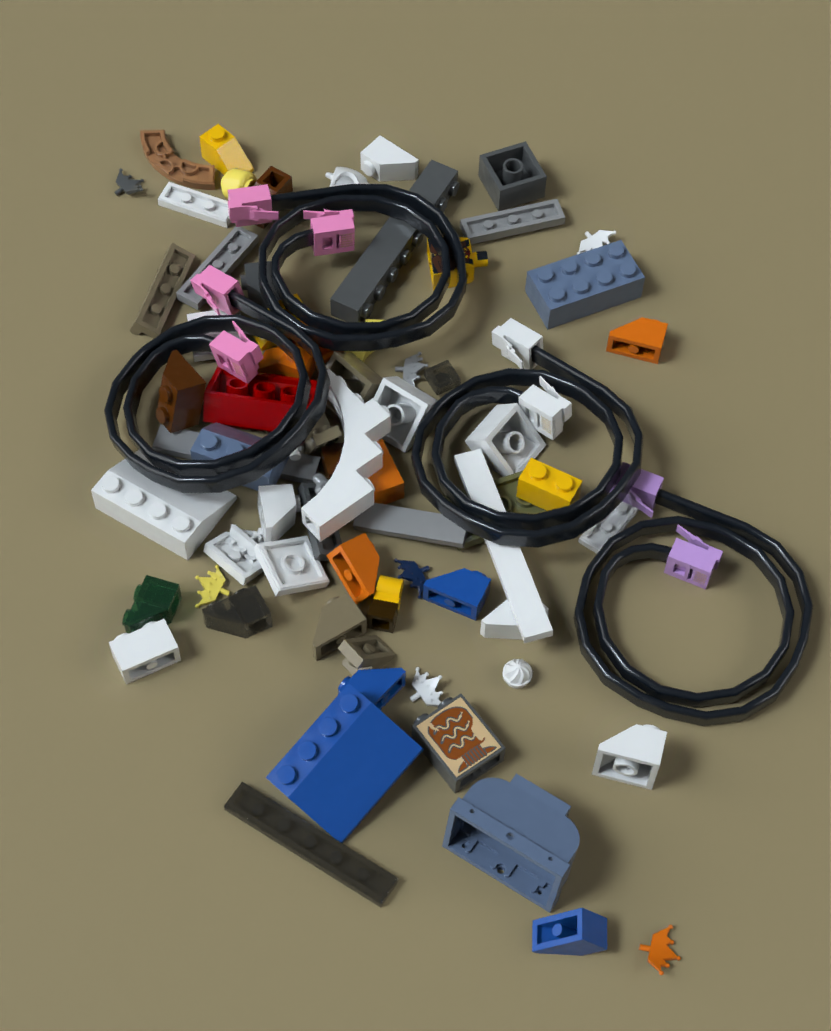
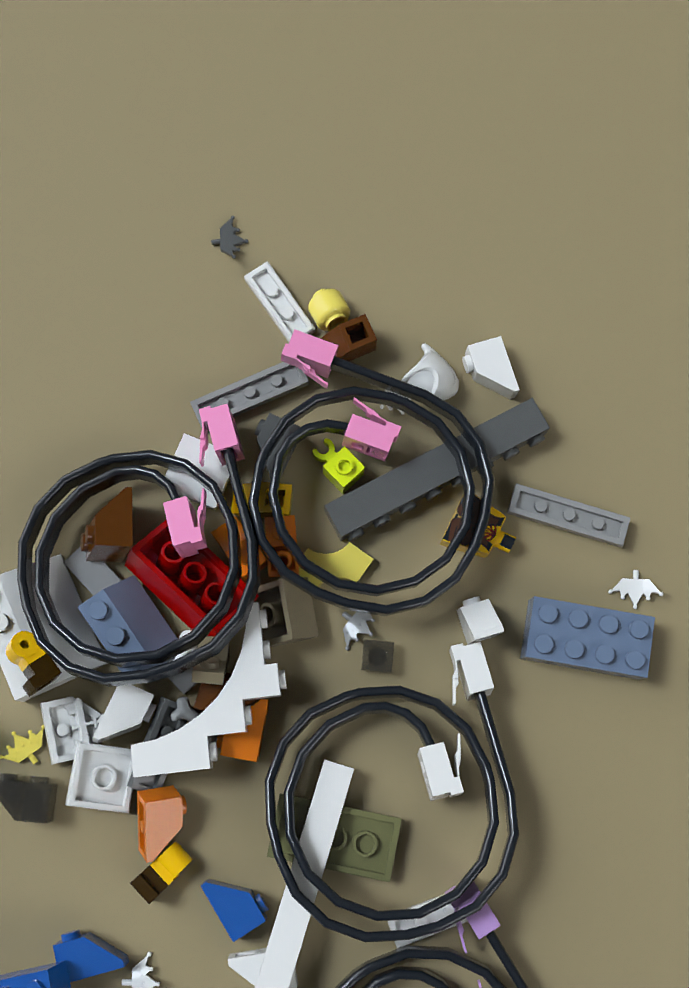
camera: 30 degrees right, 20 degrees up
(162, 292) = (182, 389): dark tan hinge -> none
(171, 166) = (284, 241): medium nougat tile -> none
(181, 501) = (32, 661): none -> leg
(223, 150) = (340, 261): yellow slope -> none
(324, 275) = (340, 468): none -> neon yellow brick
(338, 621) = (103, 868): dark tan slope -> none
(365, 653) = (107, 916): dark tan slope -> none
(407, 407) = (312, 672): white slope -> none
(410, 525) = (239, 807): light grey tile -> none
(413, 573) = (209, 853): dark blue piece -> none
(500, 309) = (479, 620): none -> white slope
(506, 439) = (387, 769): white slope -> none
(512, 176) = (602, 464): dark grey brick -> none
(547, 486) = (384, 862): yellow brick -> none
(638, 339) = (600, 738): orange slope -> none

